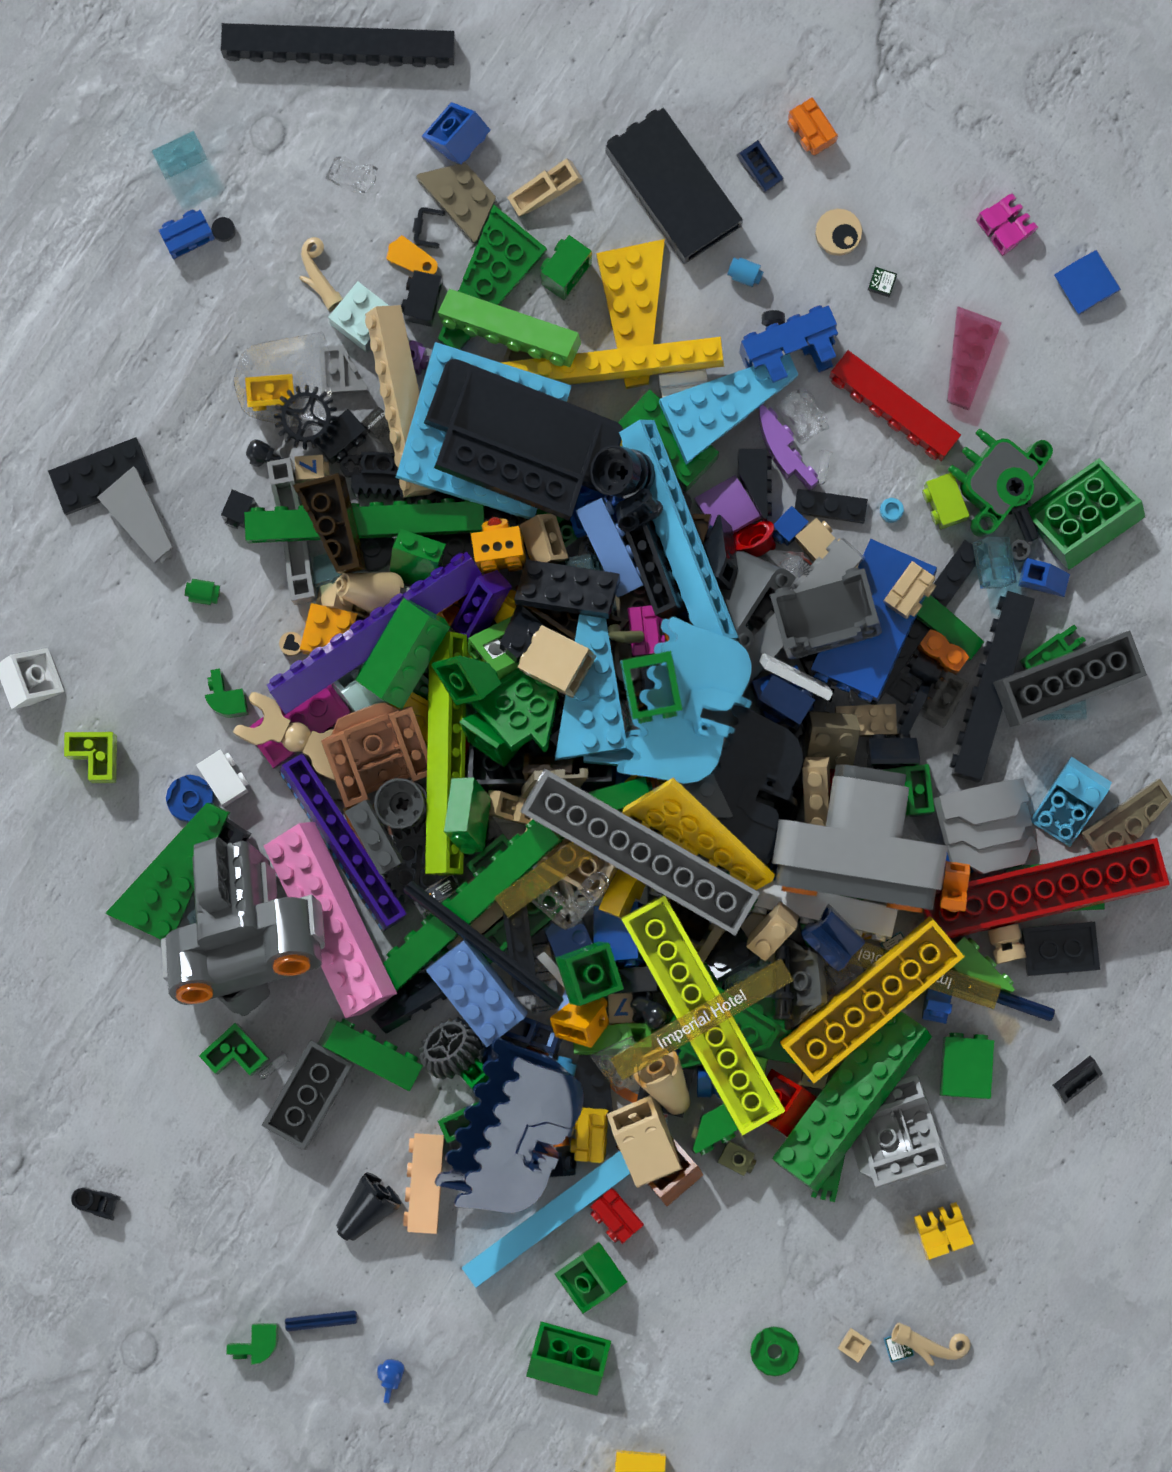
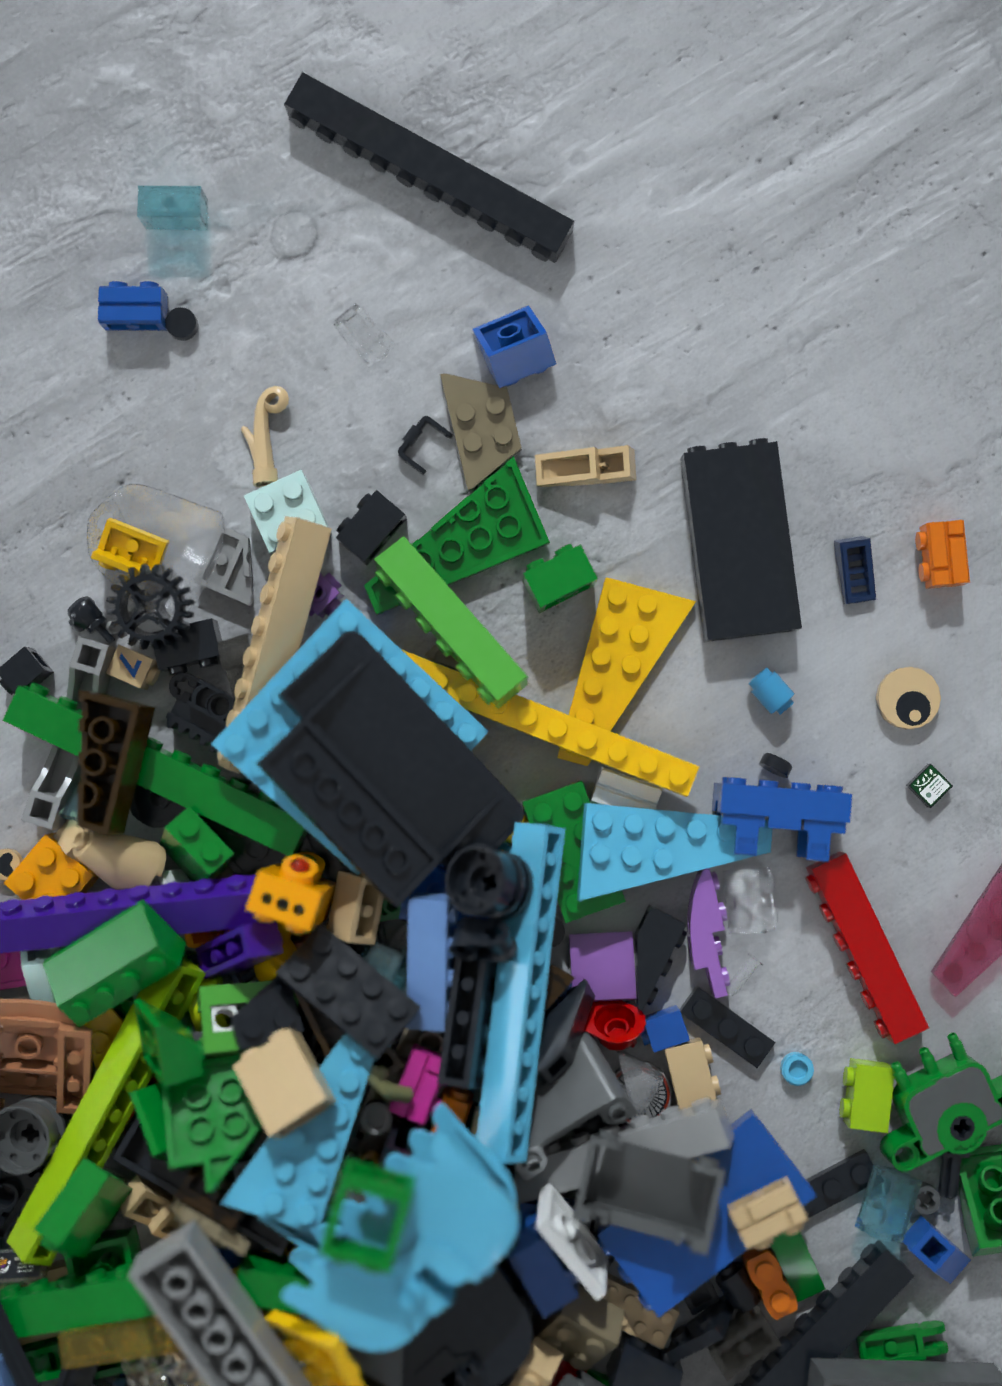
camera: 30 degrees right, 5 degrees up
(409, 256) = (384, 469): light orange piece -> none

